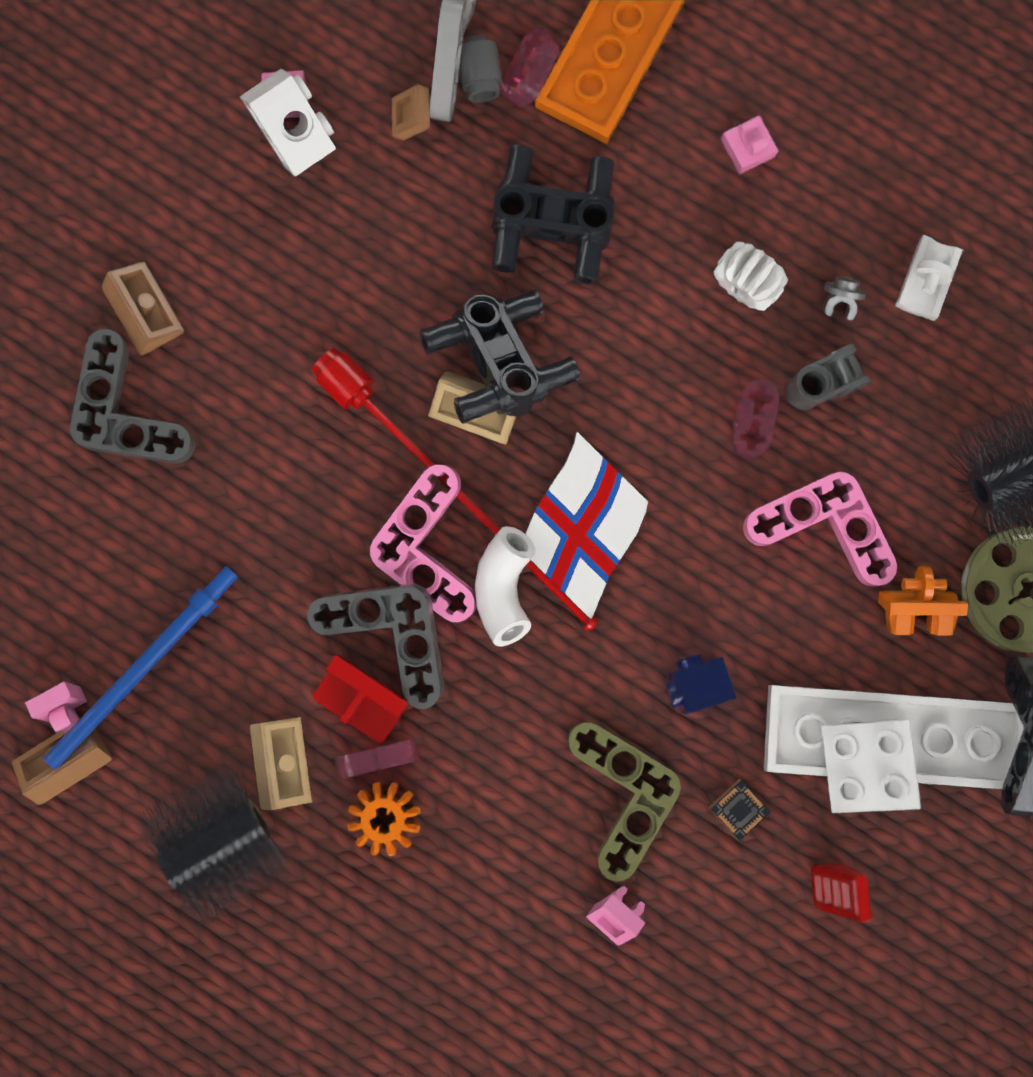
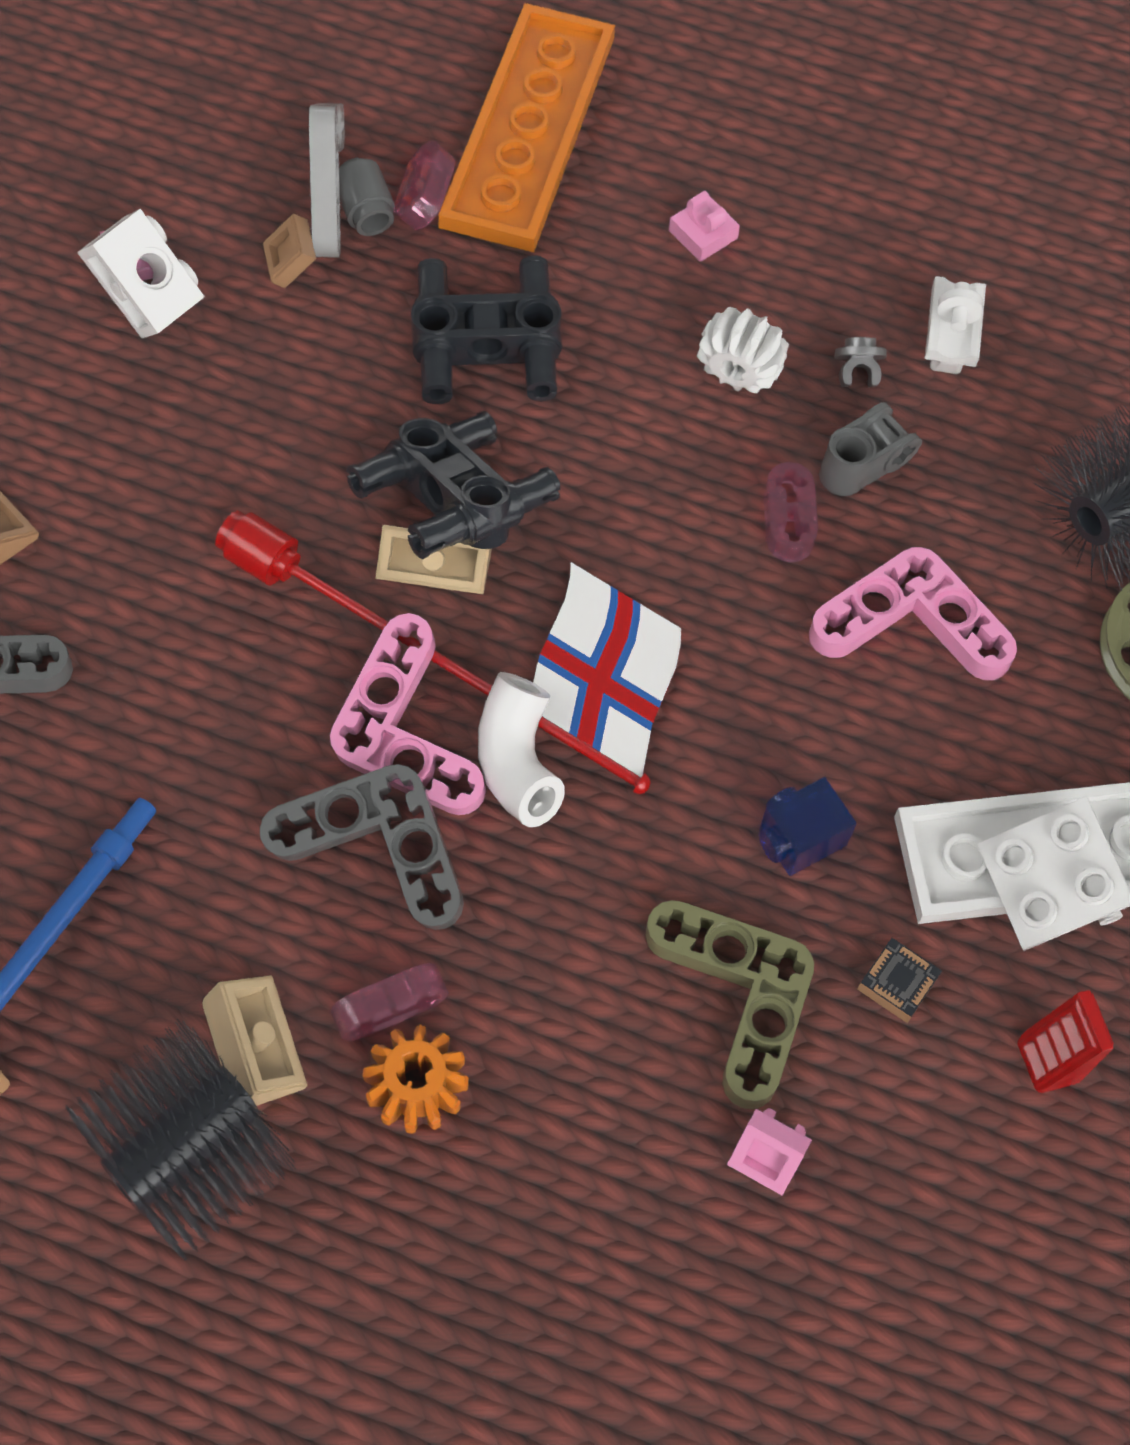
camera: 10 degrees left, 20 degrees down
(360, 699) = (352, 928): red panel -> none
(922, 597) = (1086, 681): orange hips -> none

